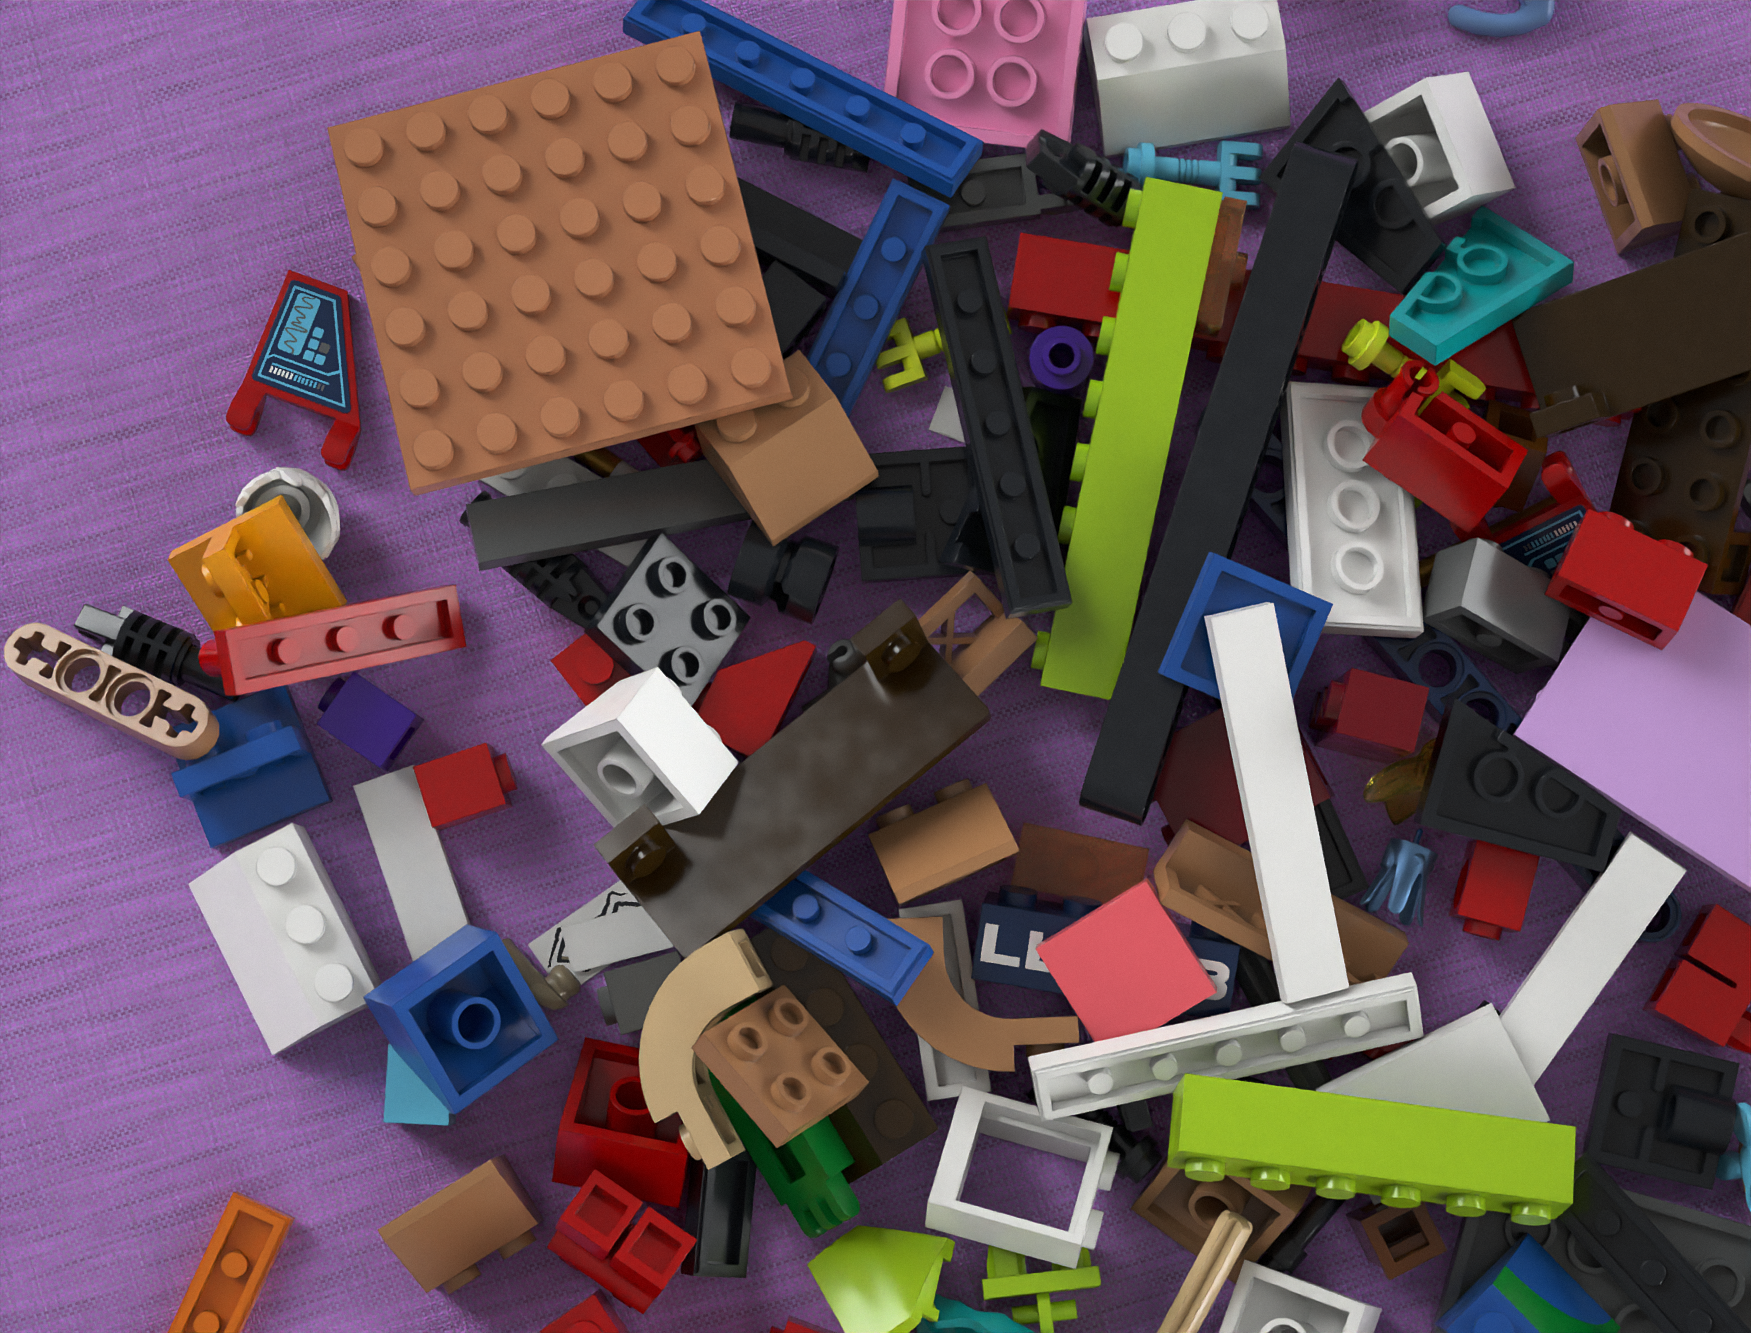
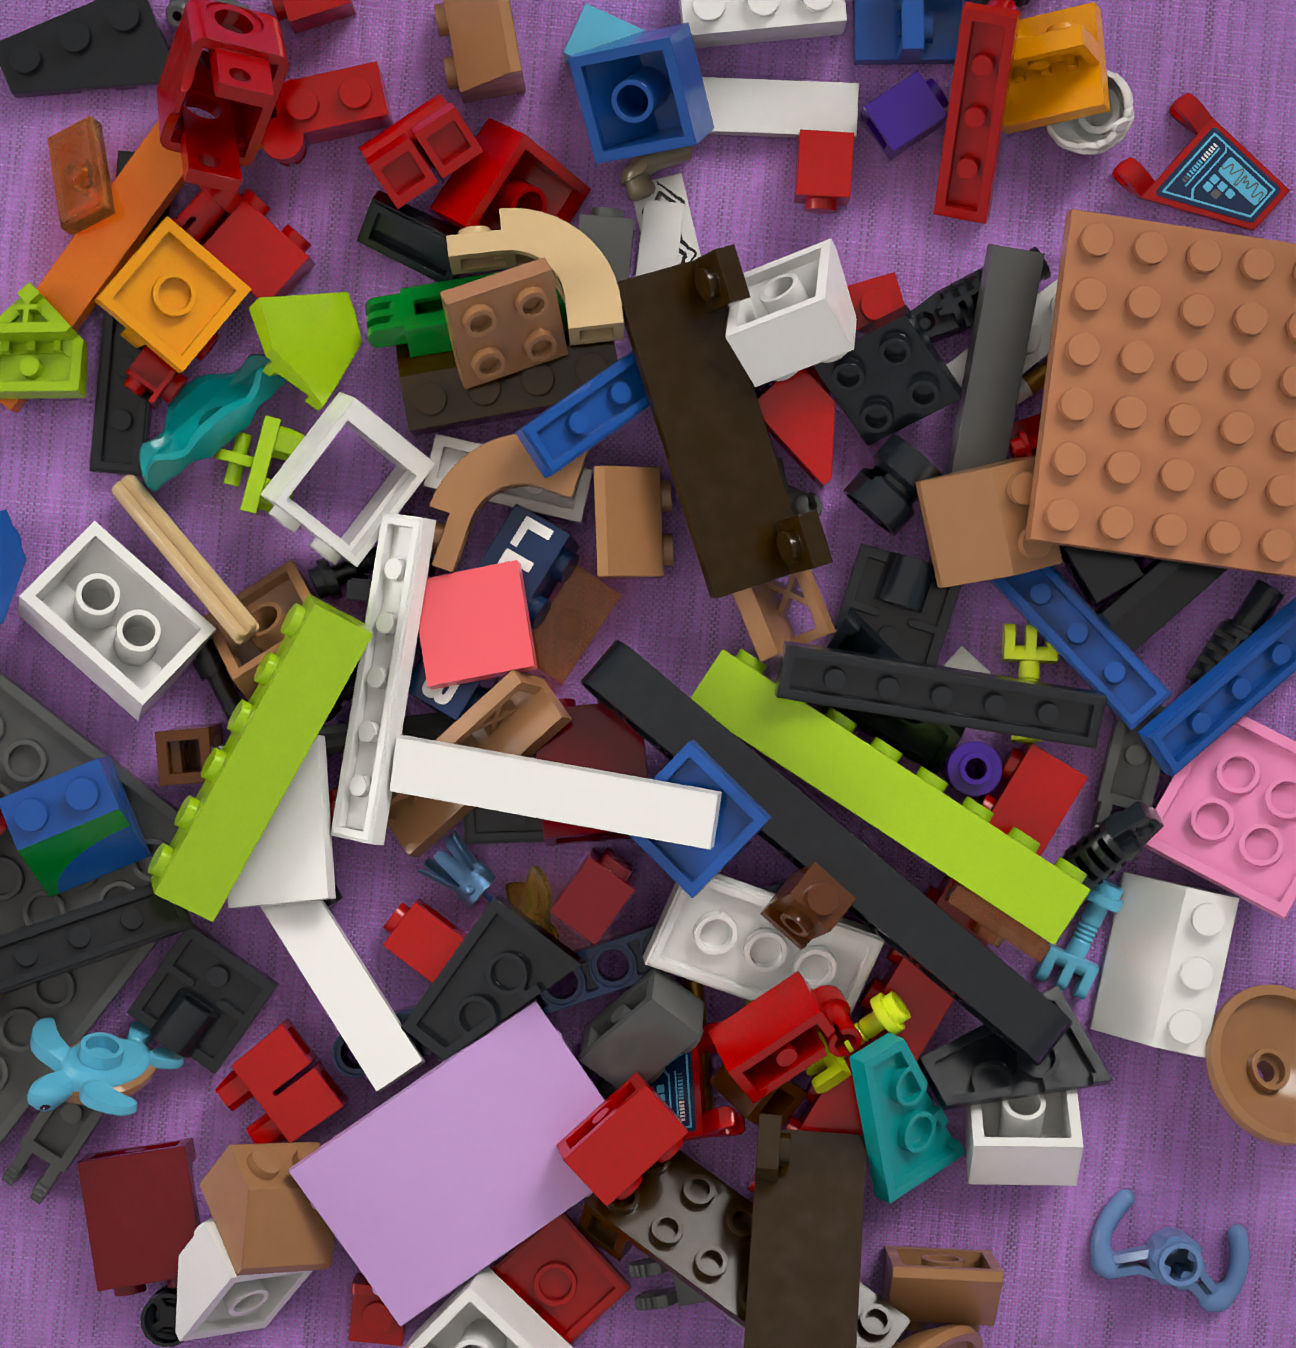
camera: 105 degrees right, 5 degrees up
(1287, 476) = (808, 905): none -> reddish brown brick

